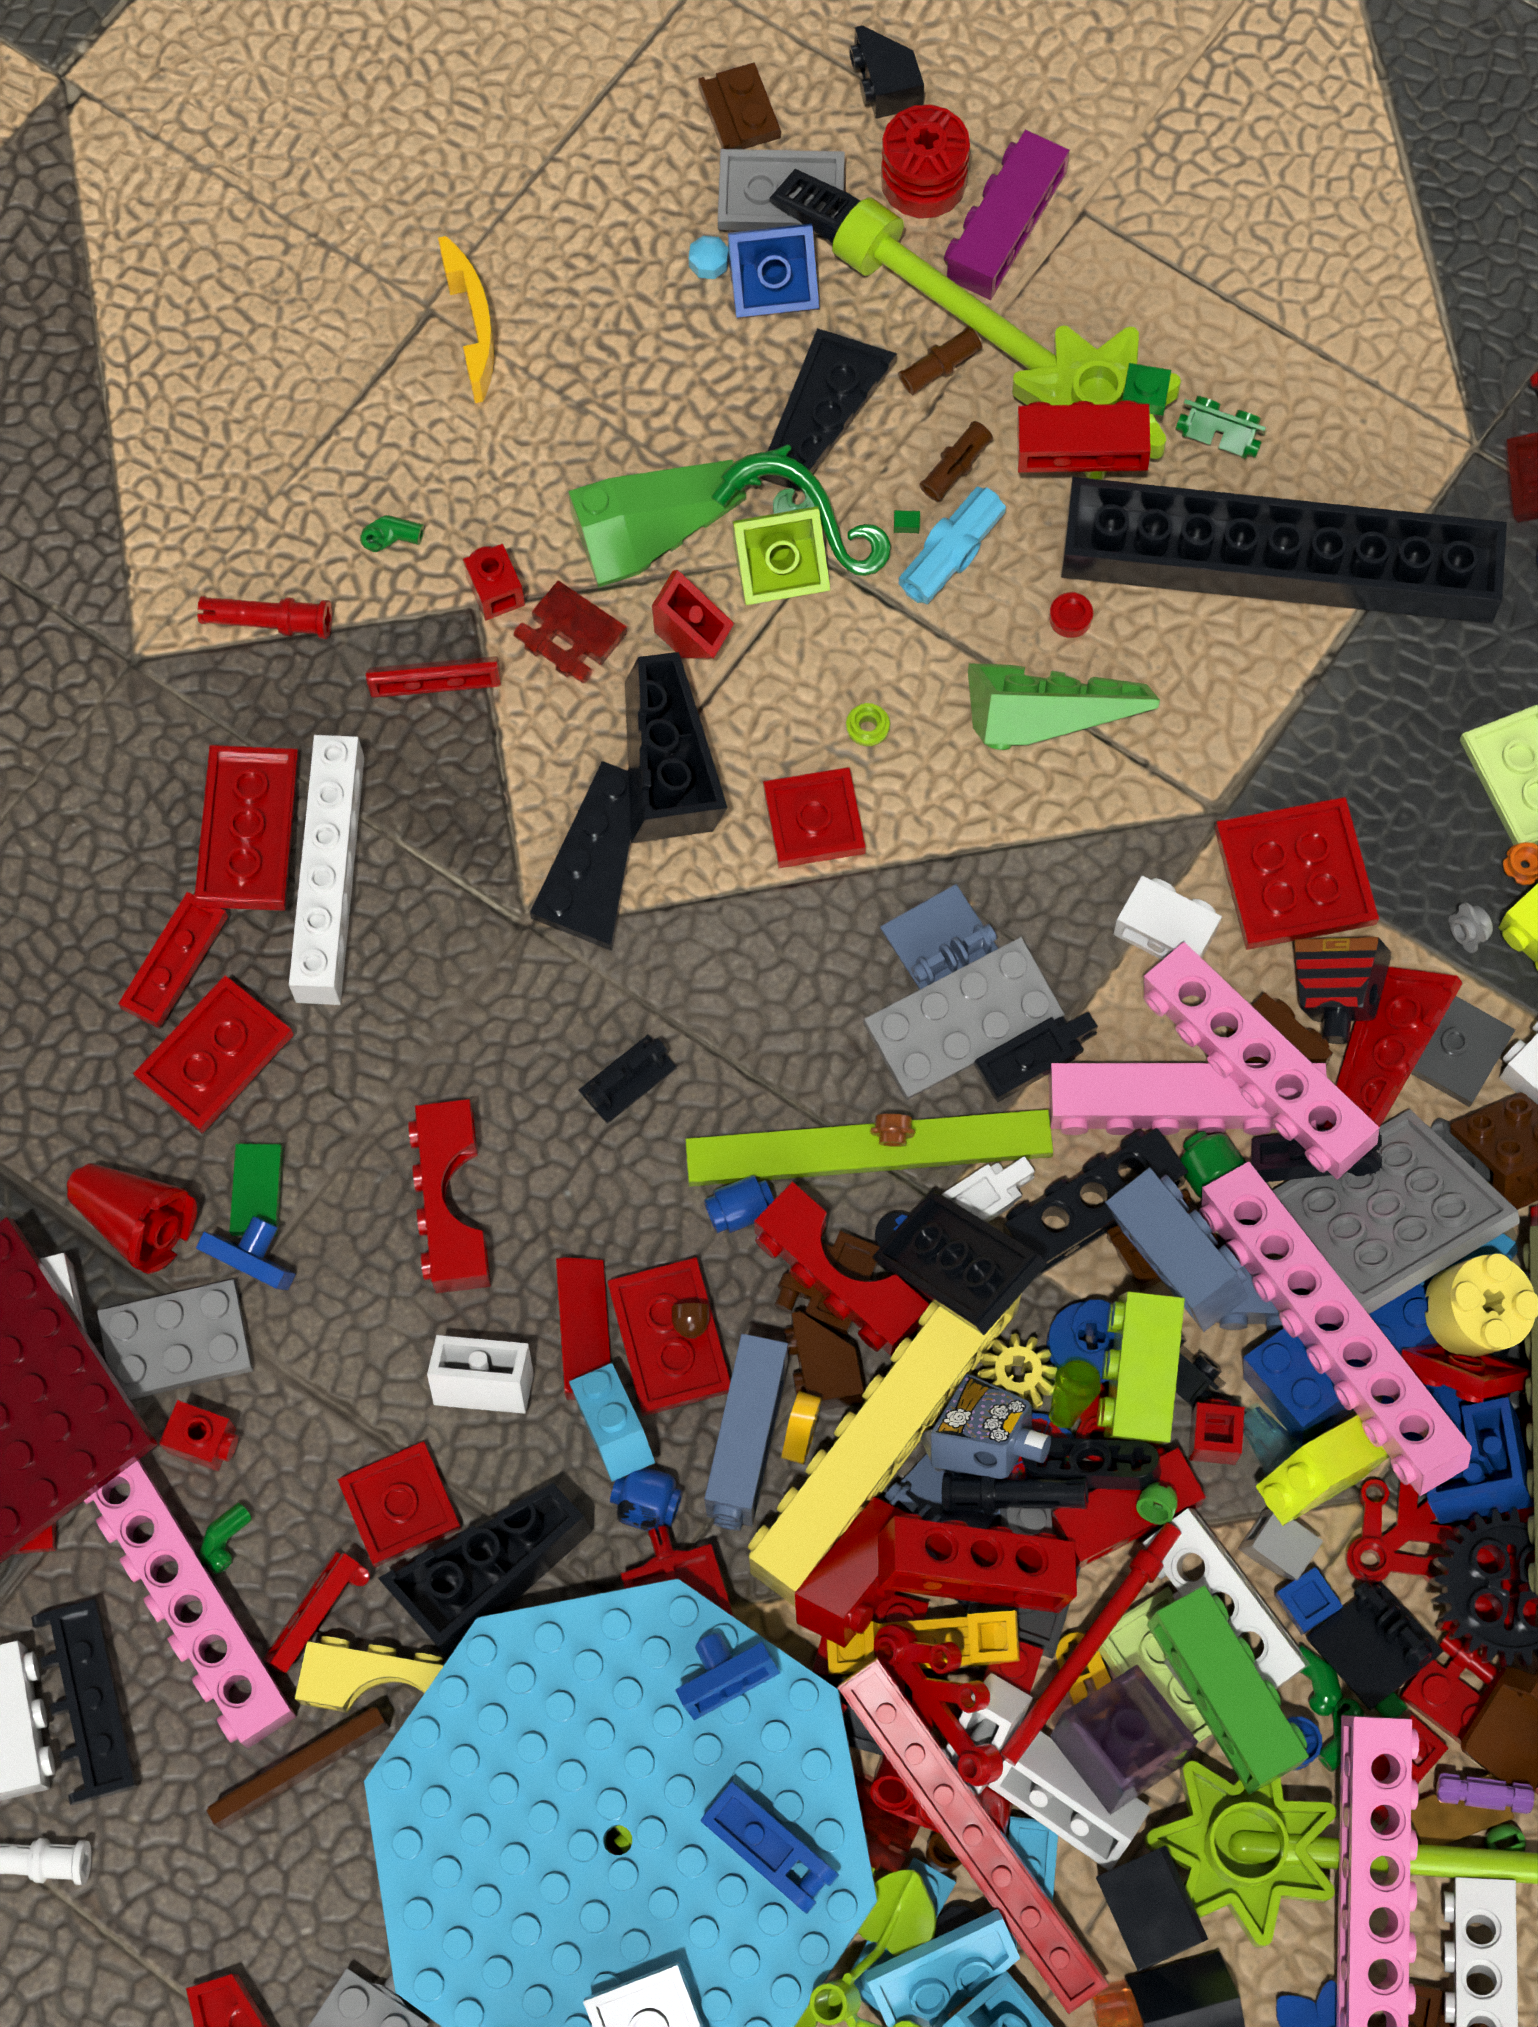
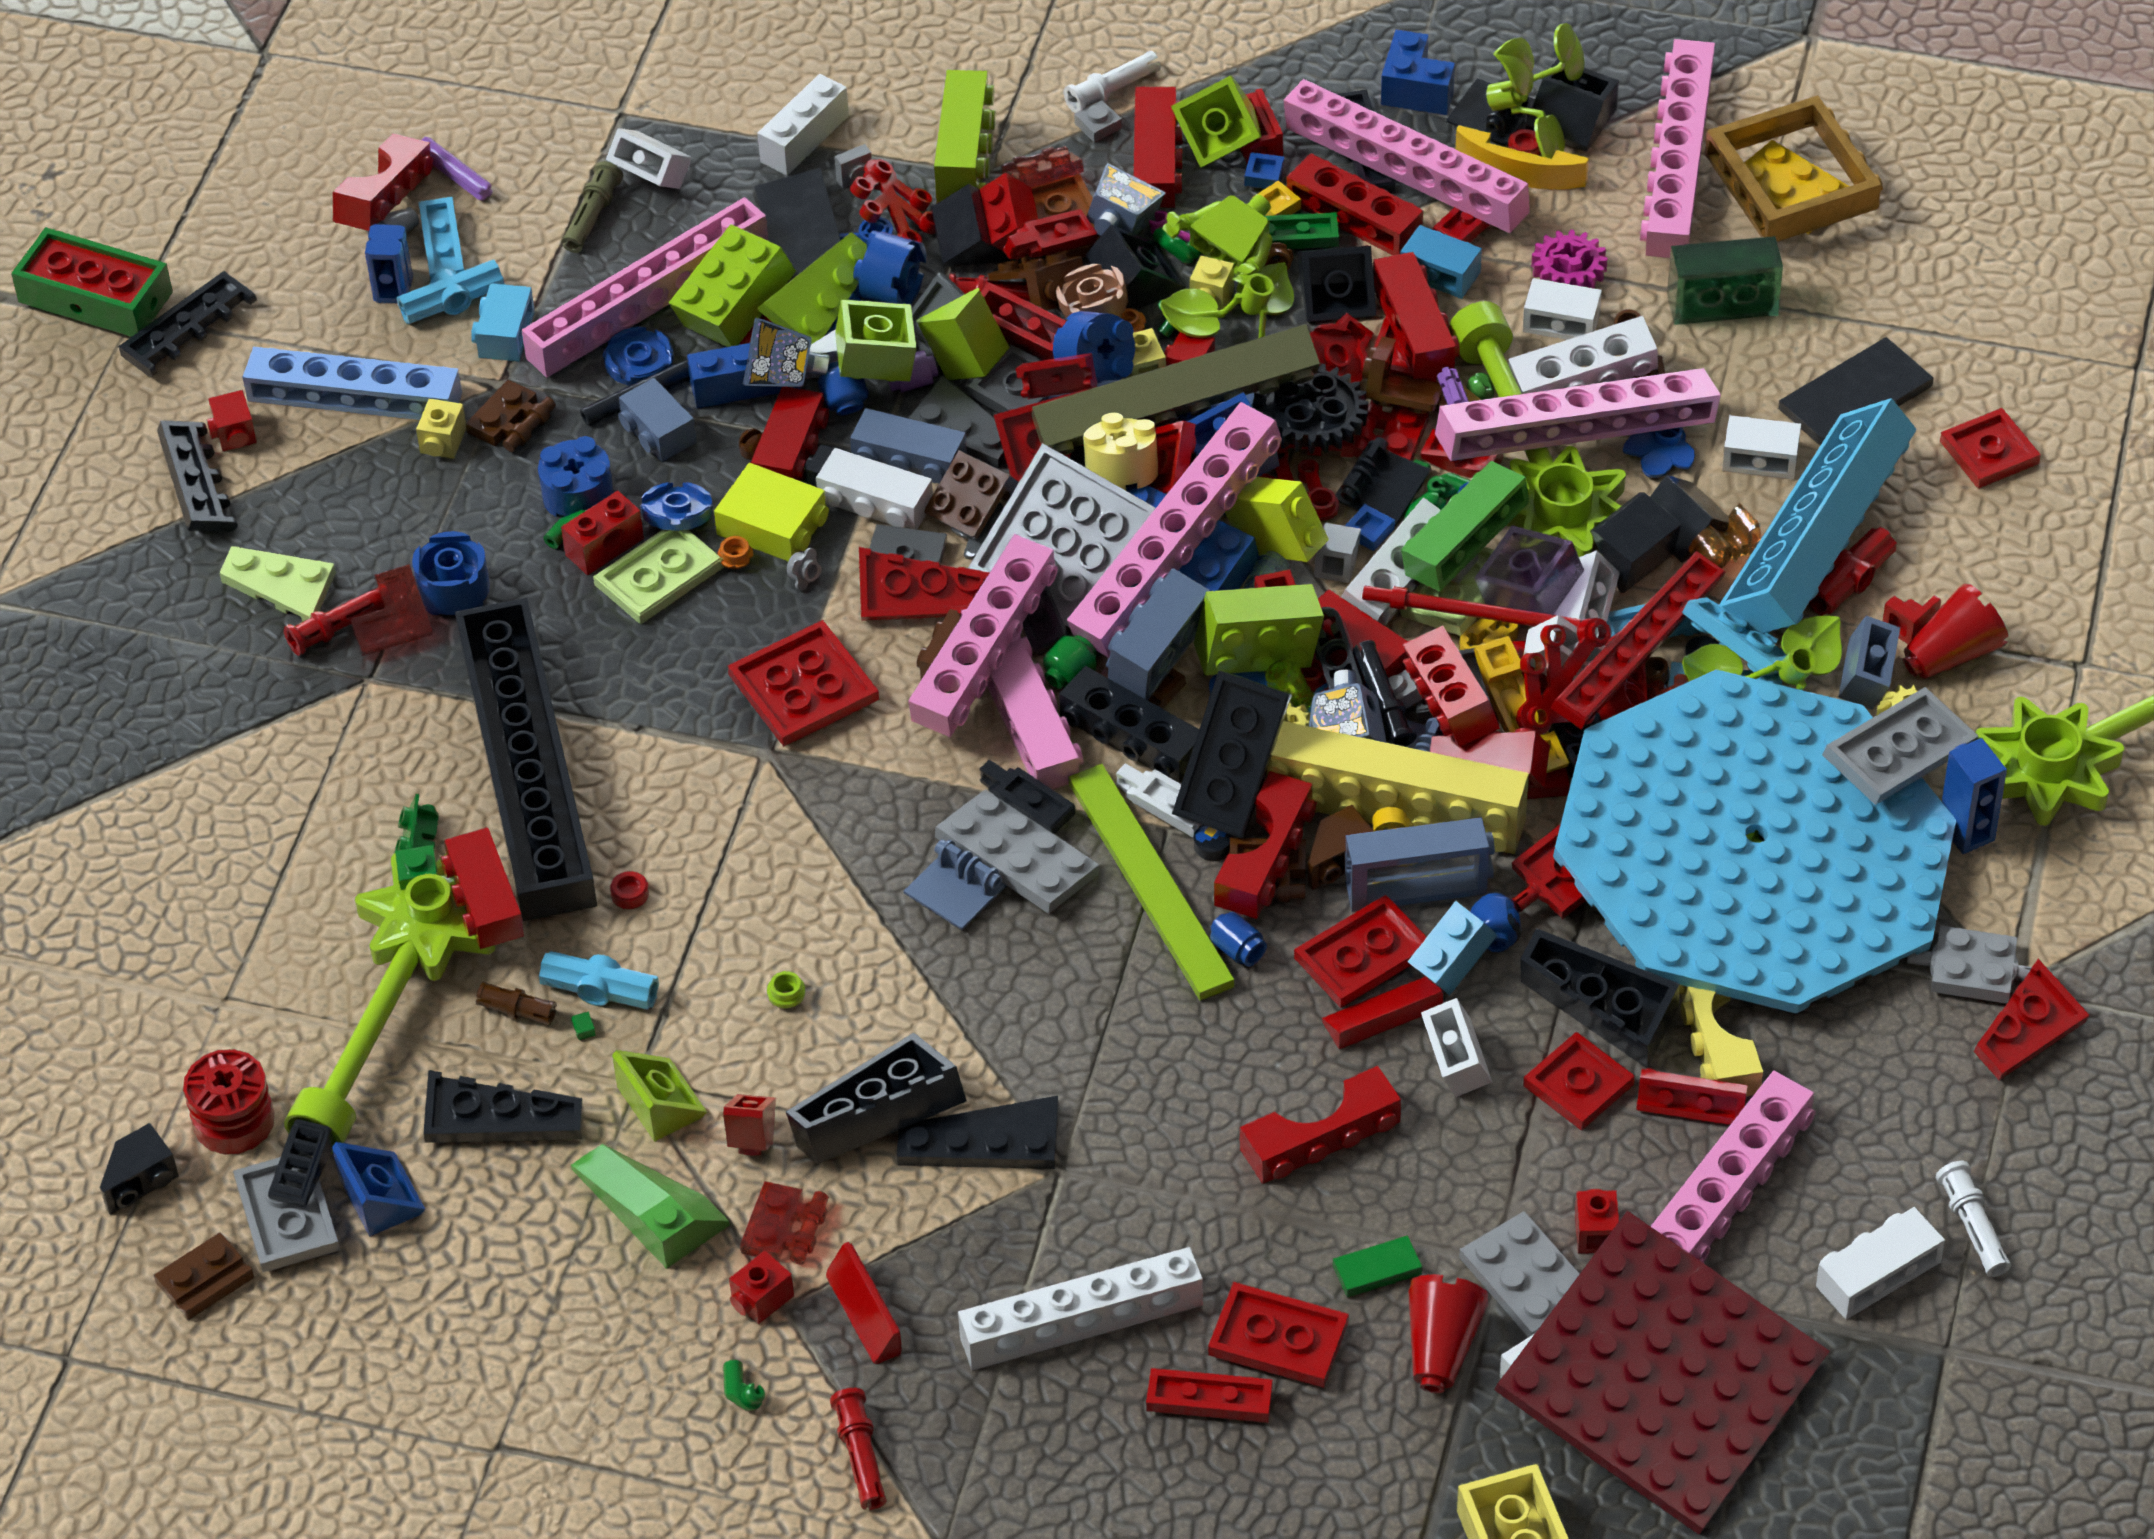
camera: 110 degrees left, 20 degrees down
(89, 1700) = (1833, 1217): black hinge -> none
(216, 1537) = (1661, 1180): green arm -> none
(246, 828) = (1067, 1384): red tile -> none
(249, 1253) = (1435, 1239): blue tile -> none
(297, 1768) = (1811, 1064): reddish brown tile -> none
(460, 279) = (547, 1372): yellow slope -> none
(628, 1078) = (1164, 1049): black hinge -> none
(690, 1319) = (1347, 926): reddish brown hinge -> none
(708, 257) = (372, 1246): medium azure tile -> none
(725, 1675) = (1613, 780): blue tile -> none
(767, 1846) = (1716, 728): blue plate -> none
(775, 462) = (611, 1091): green plant -> none
(814, 817) = (884, 1002): red tile -> none
(893, 1129) = (1133, 855): dark orange plate -> none
(940, 360) = (421, 1043): reddish brown pin -> none
(1006, 214) = (271, 1035): magenta brick -> none
(1030, 709) = (723, 877): wedge -> none
(1153, 1512) = (1350, 605): bright green hinge -> none
(1162, 919) = (882, 745): white brick -> none
(1341, 981) = (889, 622): torso -> none

